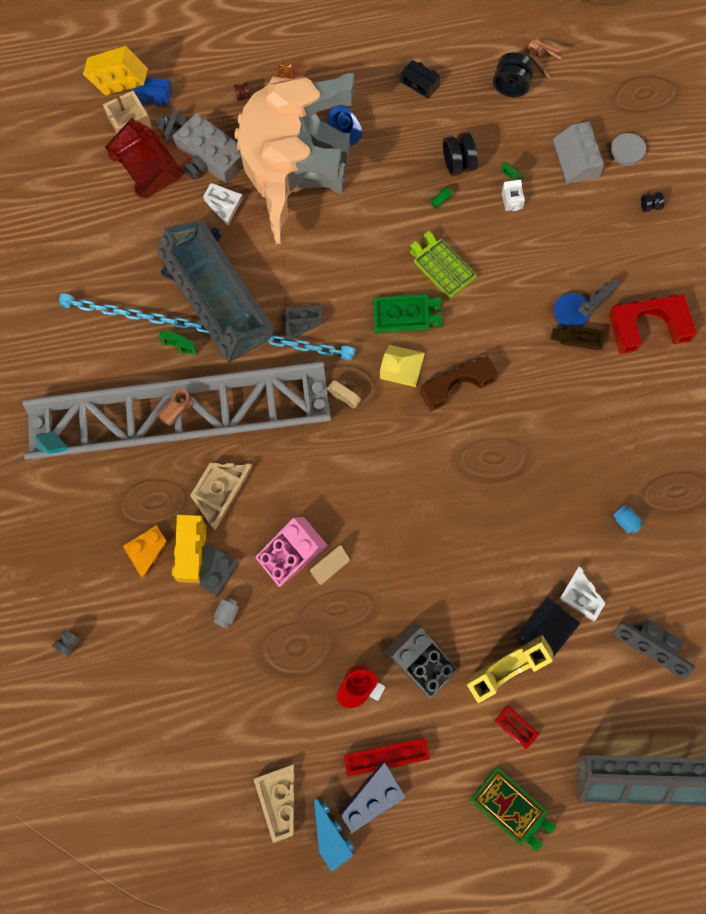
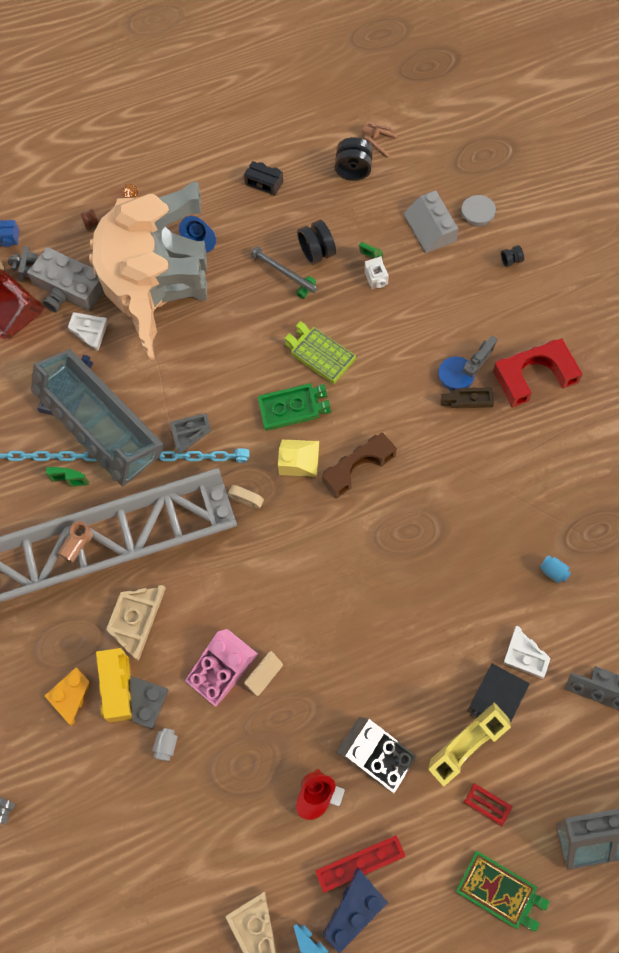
camera: 10 degrees left, 5 degrees down
(399, 154) = (257, 253): none -> dark grey bar

